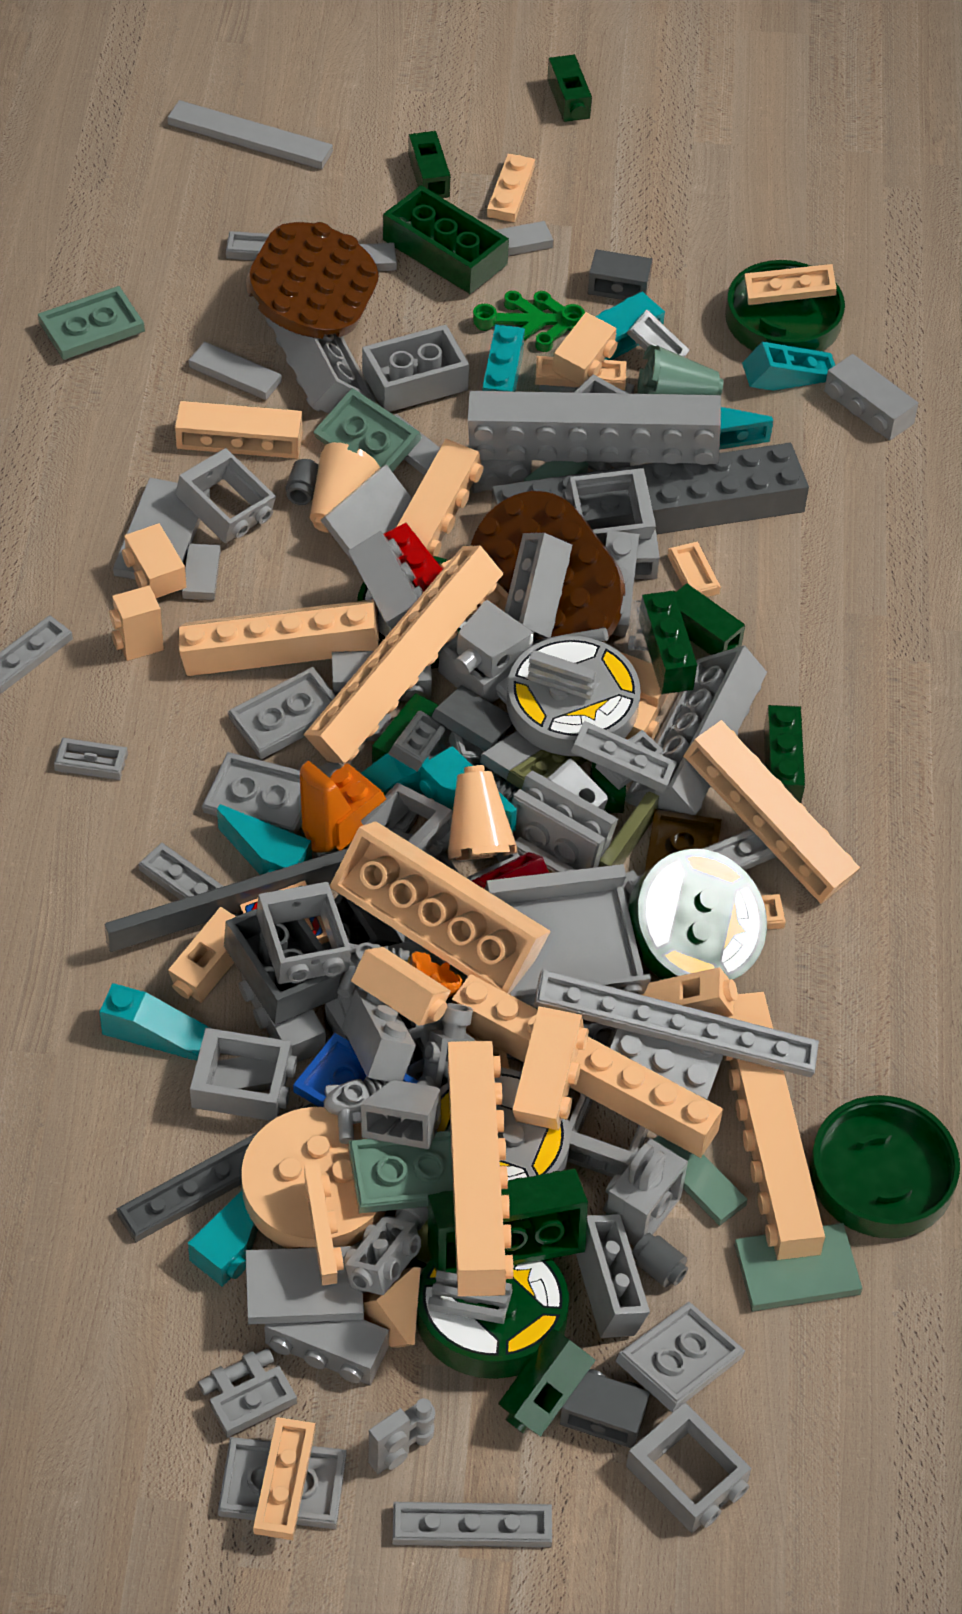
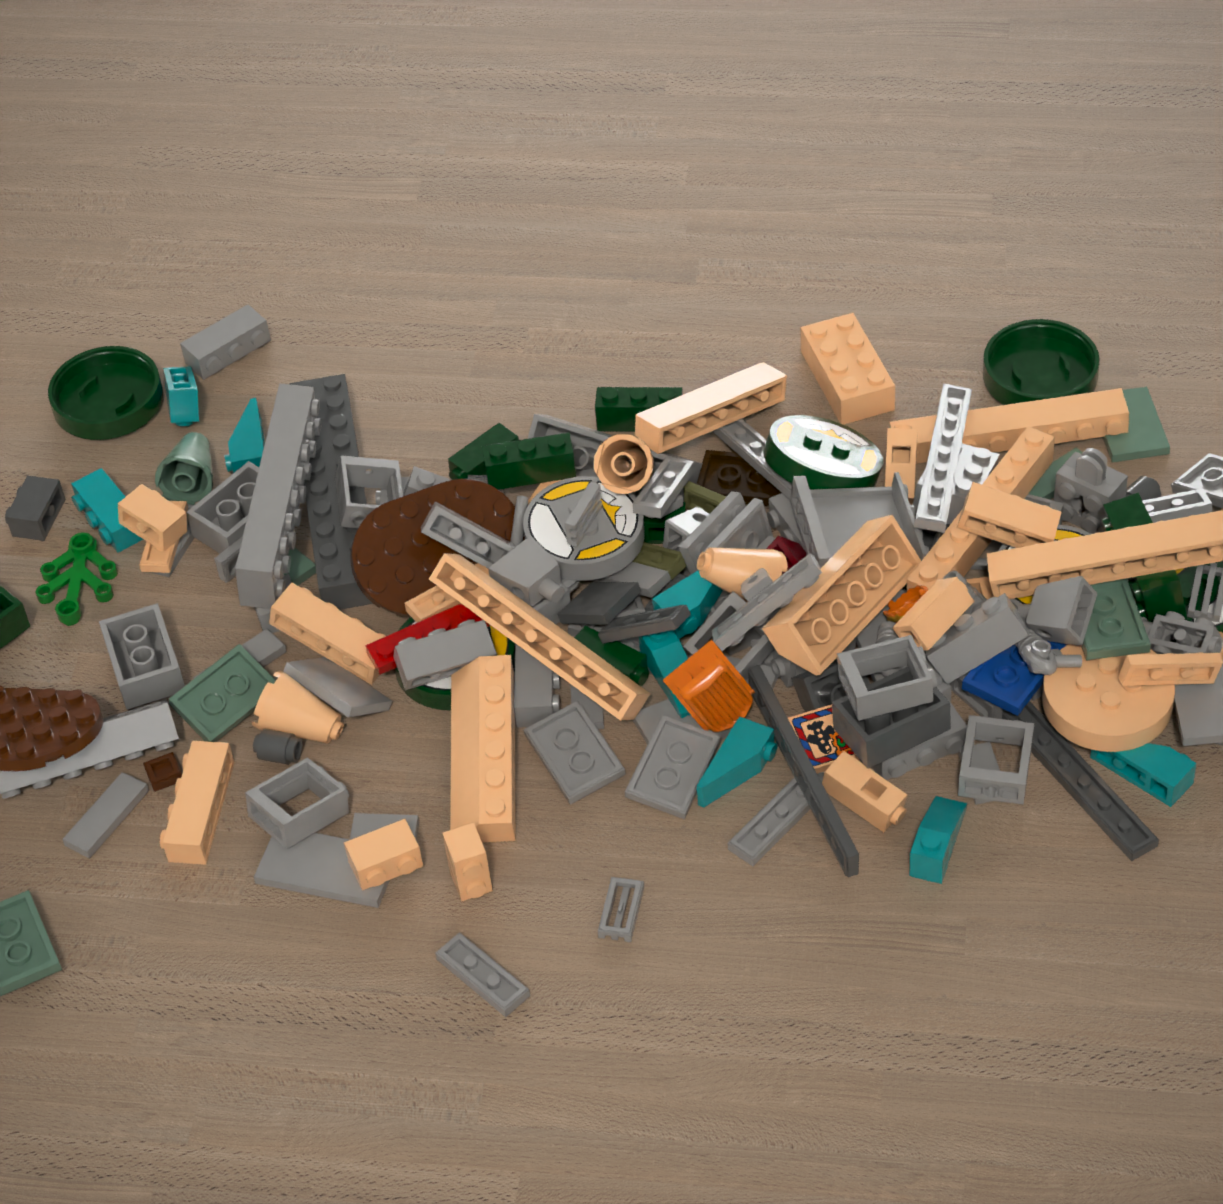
camera: 80 degrees left, 5 degrees down
(285, 400) = (162, 771): none -> reddish brown tile
(418, 829) = (763, 598): none -> light grey plate
(504, 359) = (135, 588): teal brick -> none
(645, 714) = (623, 463): none -> light nougat cone
(650, 330) = (131, 476): light grey tile -> none
(694, 568) = (429, 461): light nougat tile -> none
(790, 284) = (86, 378): light nougat plate -> none
(866, 959) = (847, 368): none -> light nougat brick

